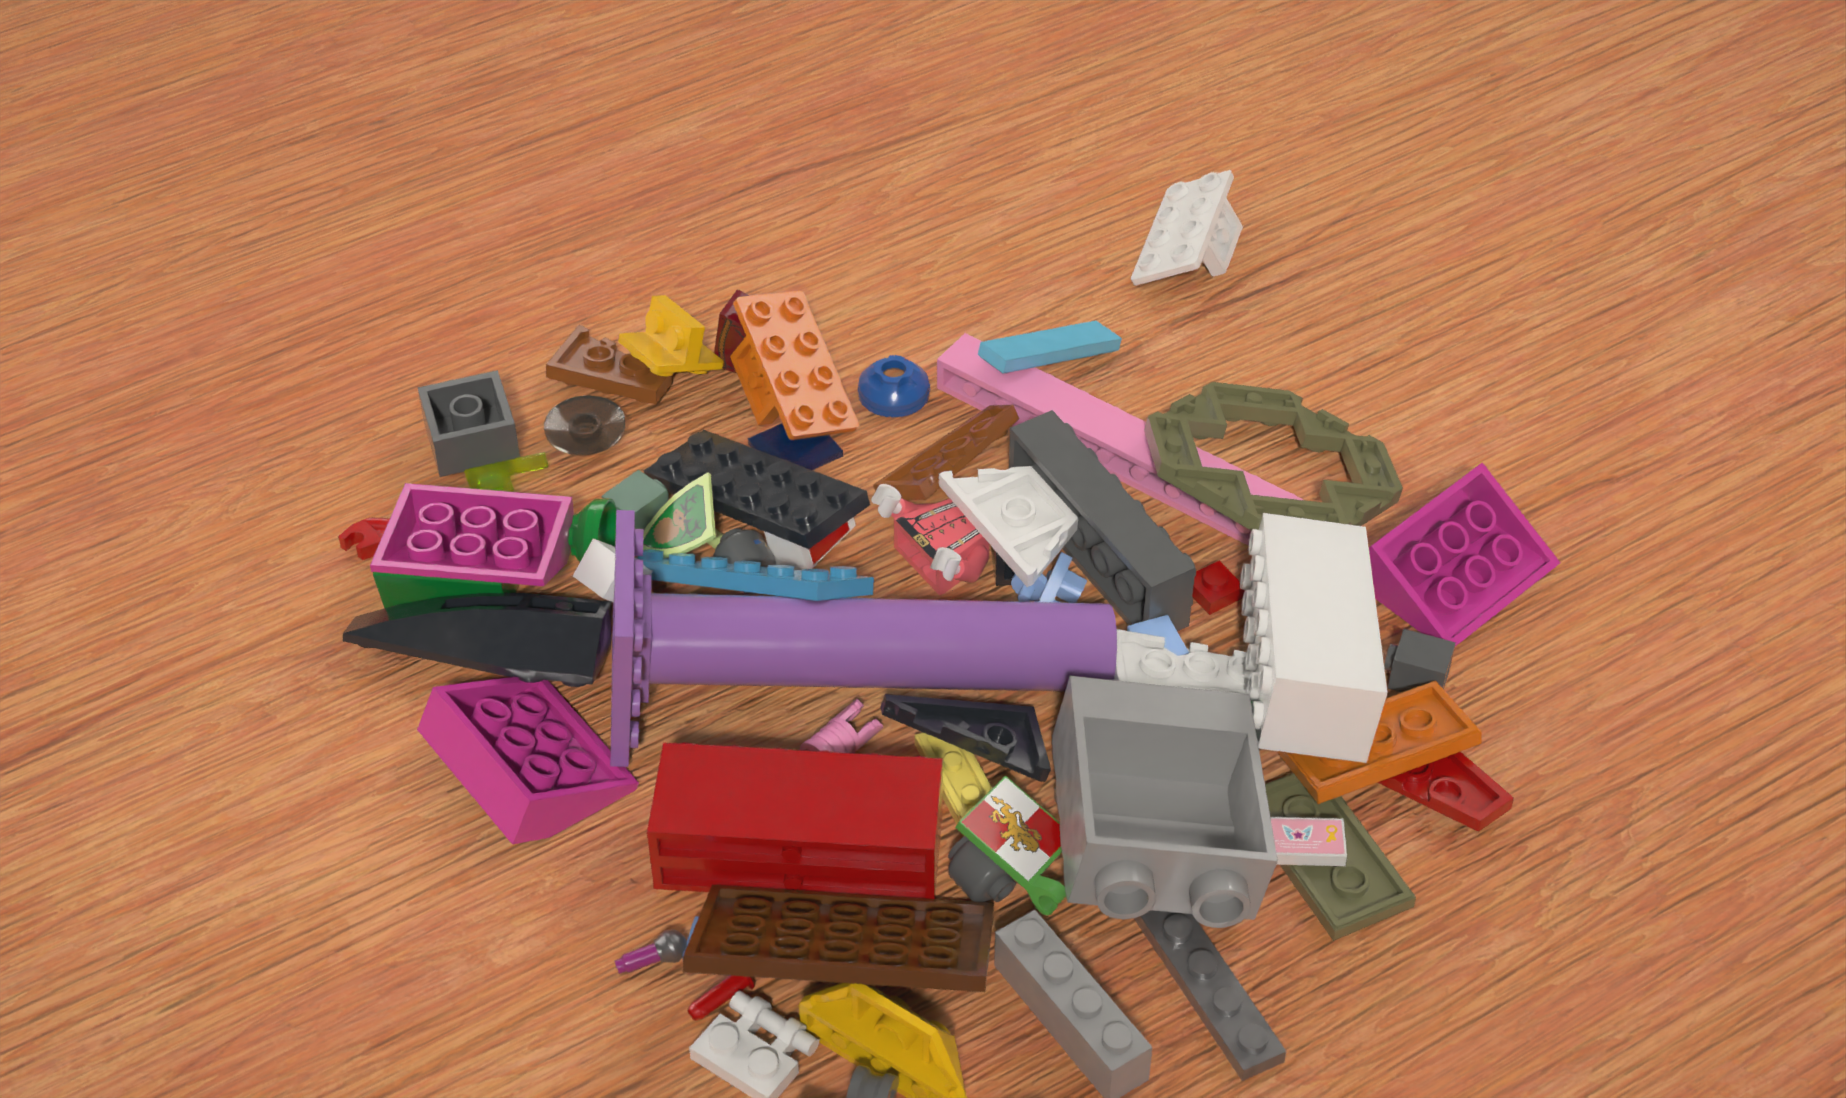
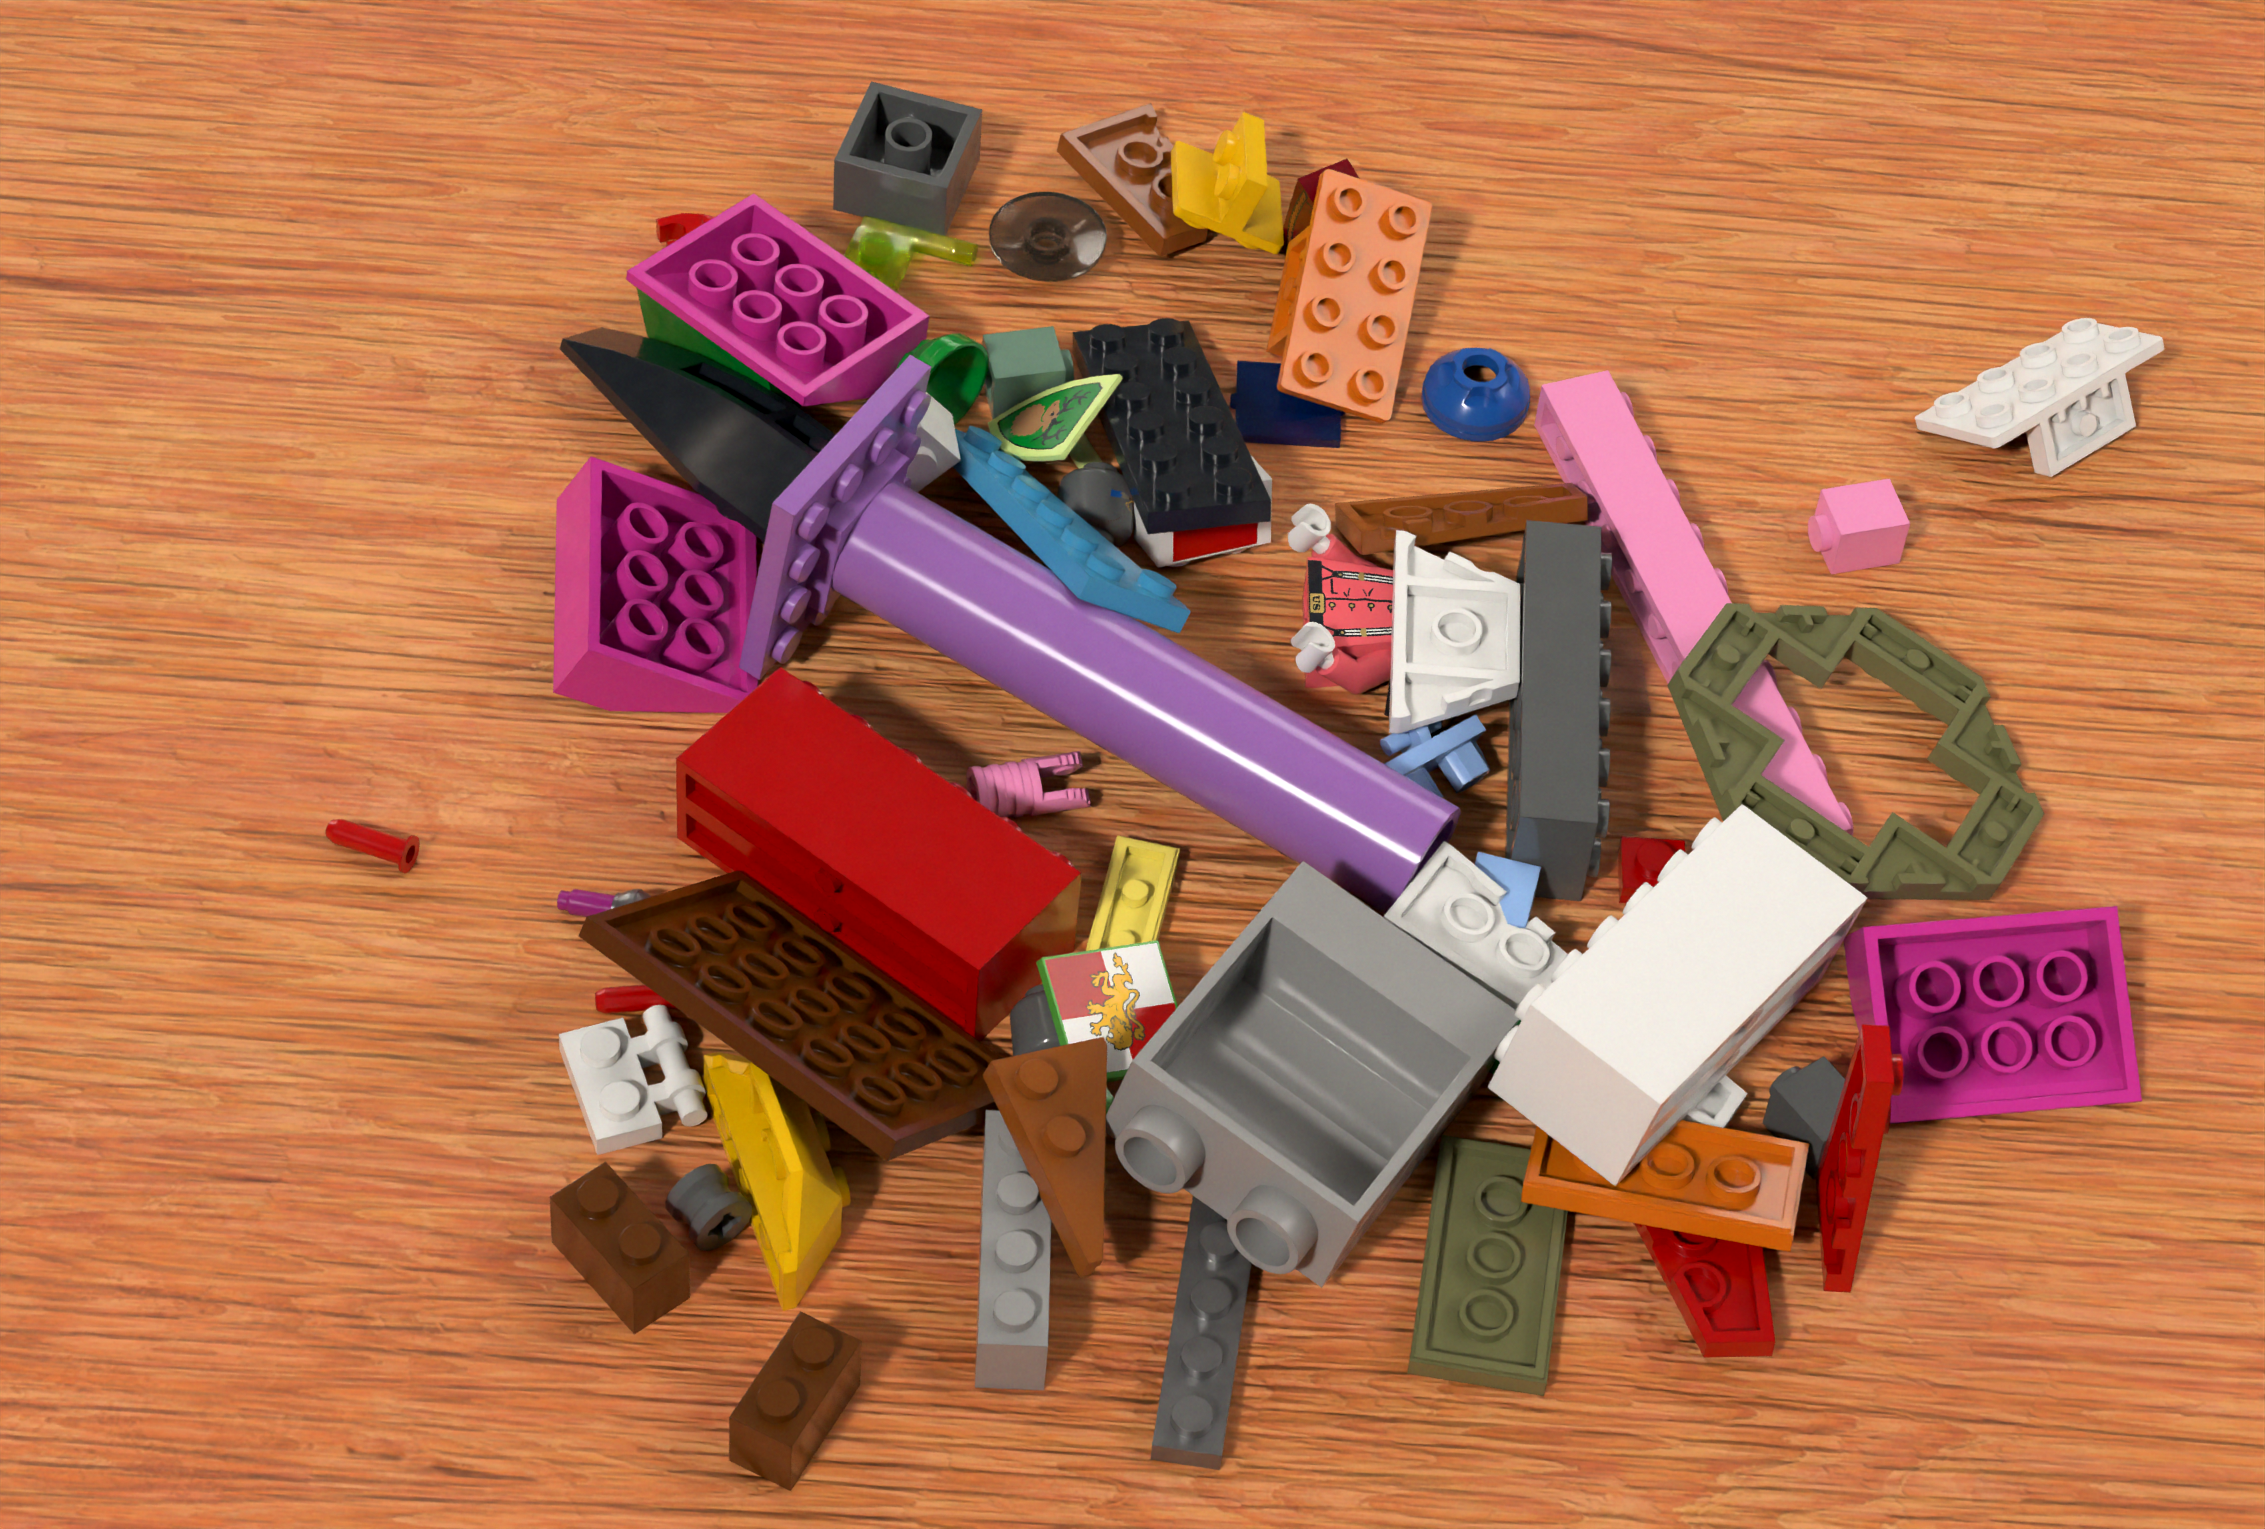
camera: 30 degrees right, 5 degrees up
(469, 1002) = (374, 843): none -> red piece
(990, 730) = (1196, 876): black wing -> none
(1044, 909) = (1058, 1123): none -> dark orange wing
(1049, 346) = (1705, 447): medium azure tile -> none
(1159, 347) = (1859, 526): none -> bright pink brick
(1309, 841) = (1454, 1229): tile -> none
(1482, 664) = (1853, 1153): none -> red wing

